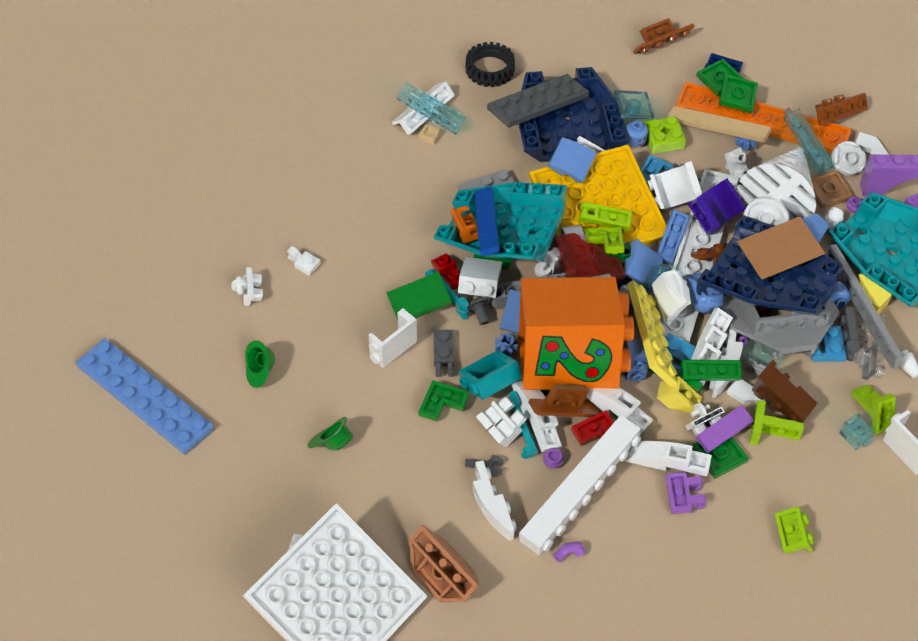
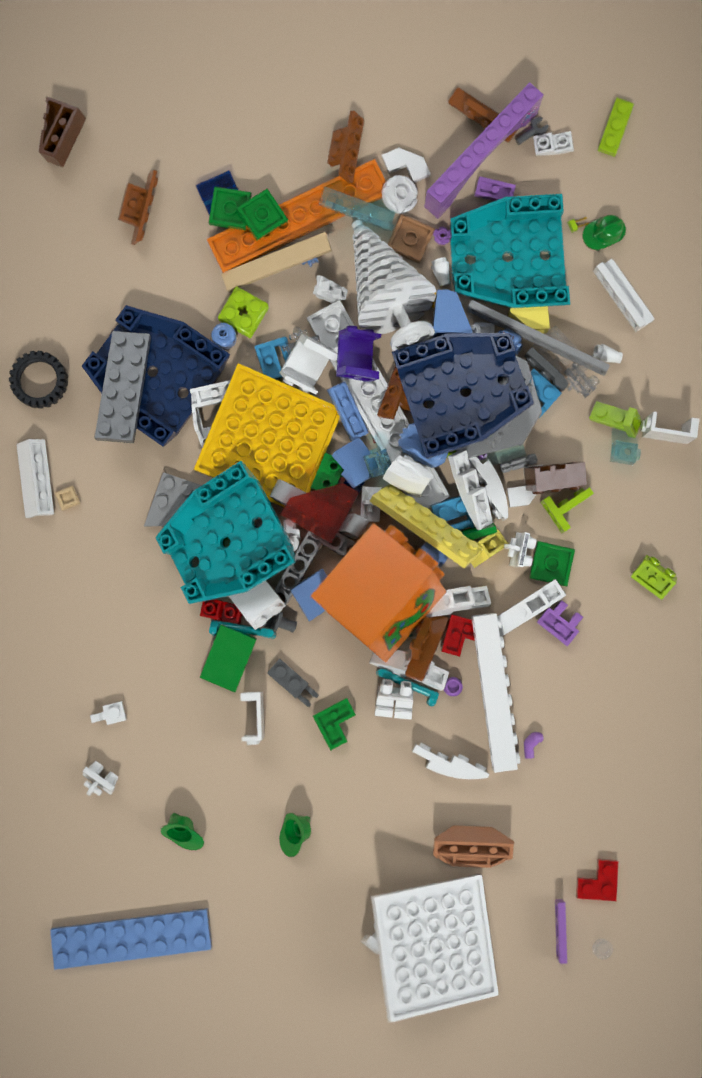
camera: 45 degrees left, 30 degrees up
(431, 108) = (51, 483): clear light blue fence -> none
(465, 224) = (200, 567): orange hinge -> none
(486, 221) = (218, 555): blue tile -> none
(490, 374) = (362, 674): teal window -> none
(494, 460) = (414, 739): dark grey bar -> none
(506, 344) = (327, 627): medium blue gear -> none
(572, 159) = (215, 426): medium blue slope -> none
(605, 216) = (288, 448): lime plate -> none
(609, 236) = (310, 465): lime plate -> none
(634, 105) = (199, 314): clear light blue slope -> none
(711, 370) = (493, 511): green tile -> none
(724, 429) = (541, 545): medium lavender tile -> none
(780, 247) = (451, 360): medium nougat sticker -> none

